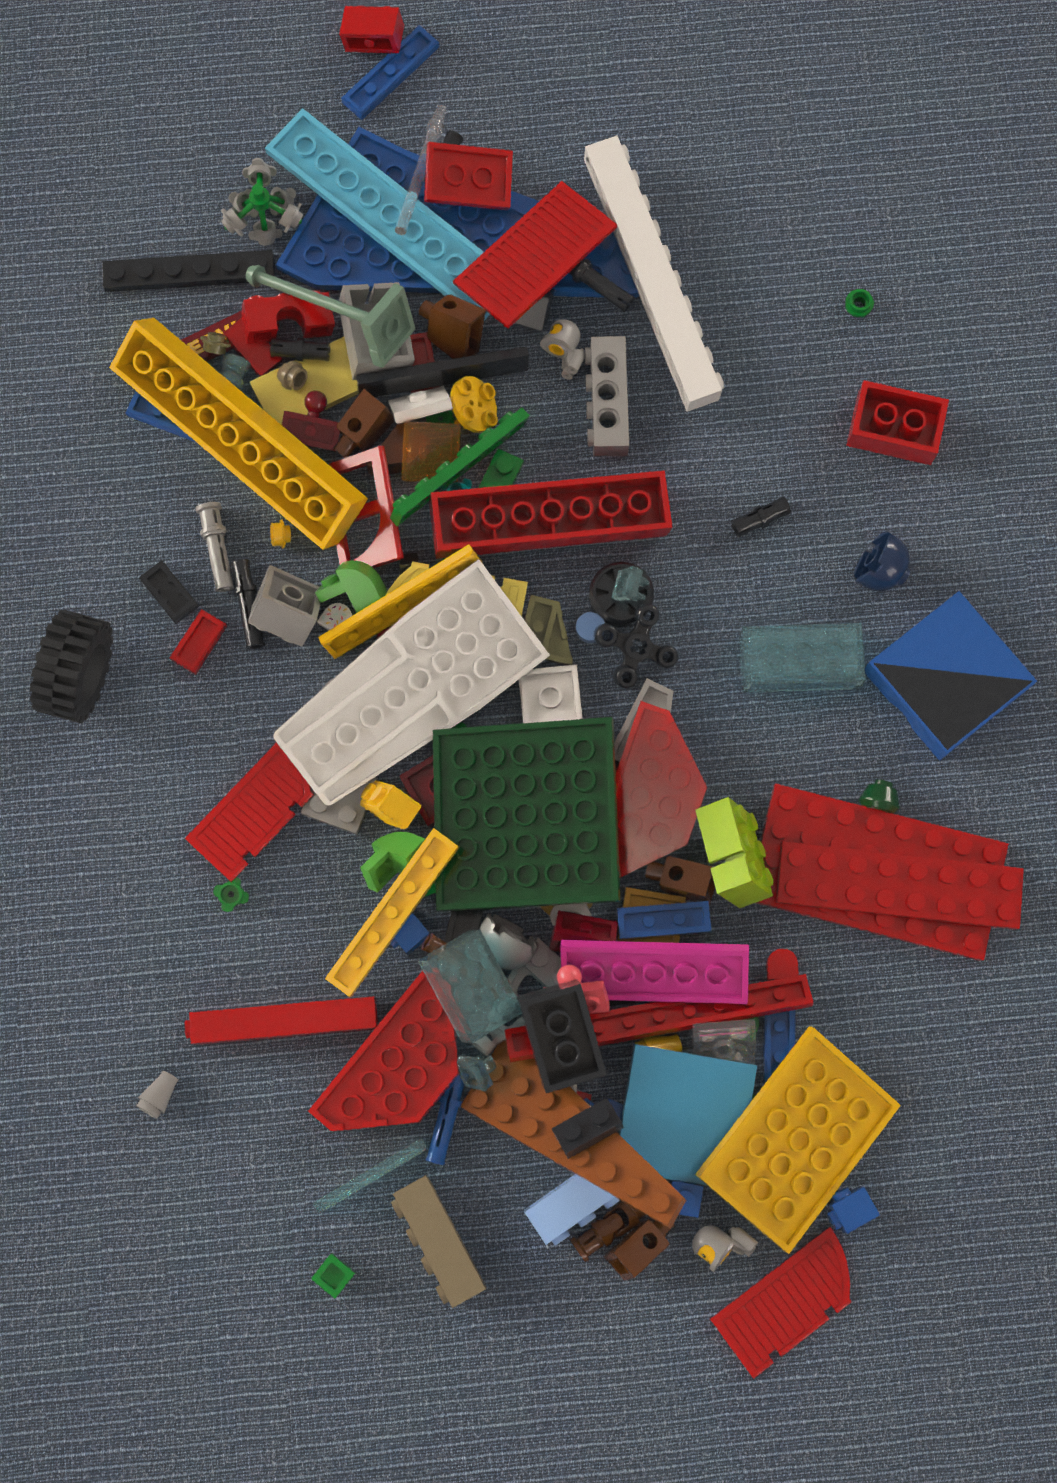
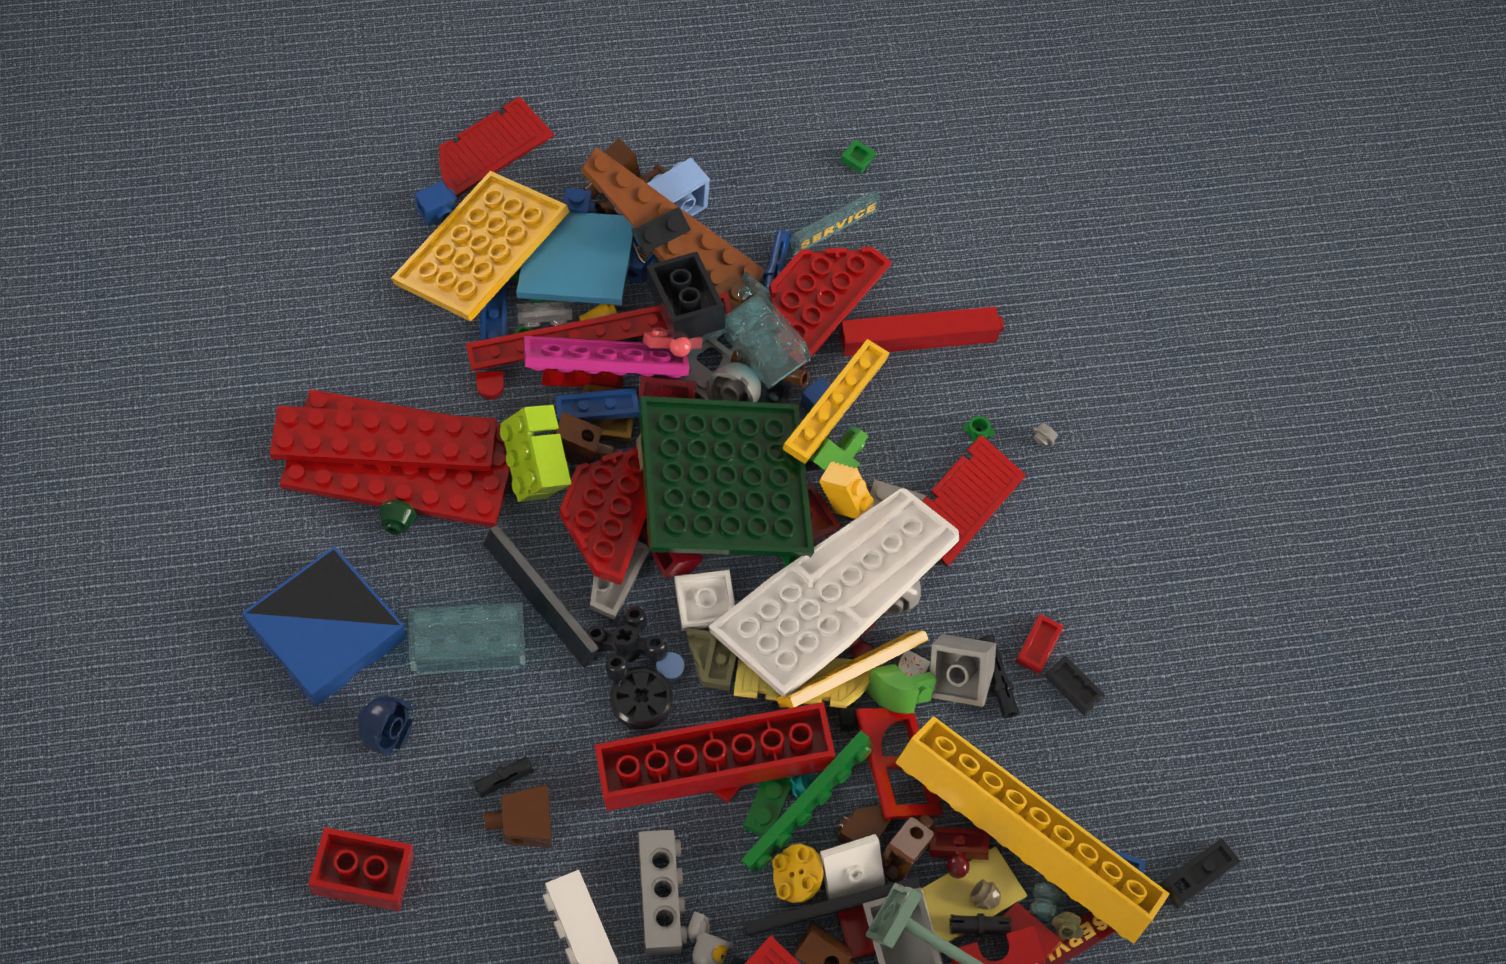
camera: 170 degrees right, 15 degrees down
(71, 666) = (1151, 593): black tyre -> none
(74, 397) = (1200, 872): none -> black plate
(156, 884) = (1045, 435): none -> light grey plate
(157, 1095) = (1018, 275): light grey cone -> none
(214, 534) = (1040, 741): light grey pin -> none
(280, 534) = (977, 740): yellow plate -> none
(427, 447) = (839, 819): clear orange tile -> none
(439, 1241) = (776, 176): dark tan brick -> none
(628, 583) = (636, 692): clear light blue tile -> none
(716, 1245) = (549, 177): light grey piece -> none
(725, 704) = (541, 596): none -> black tile
(740, 471) = (523, 818): none -> reddish brown torso

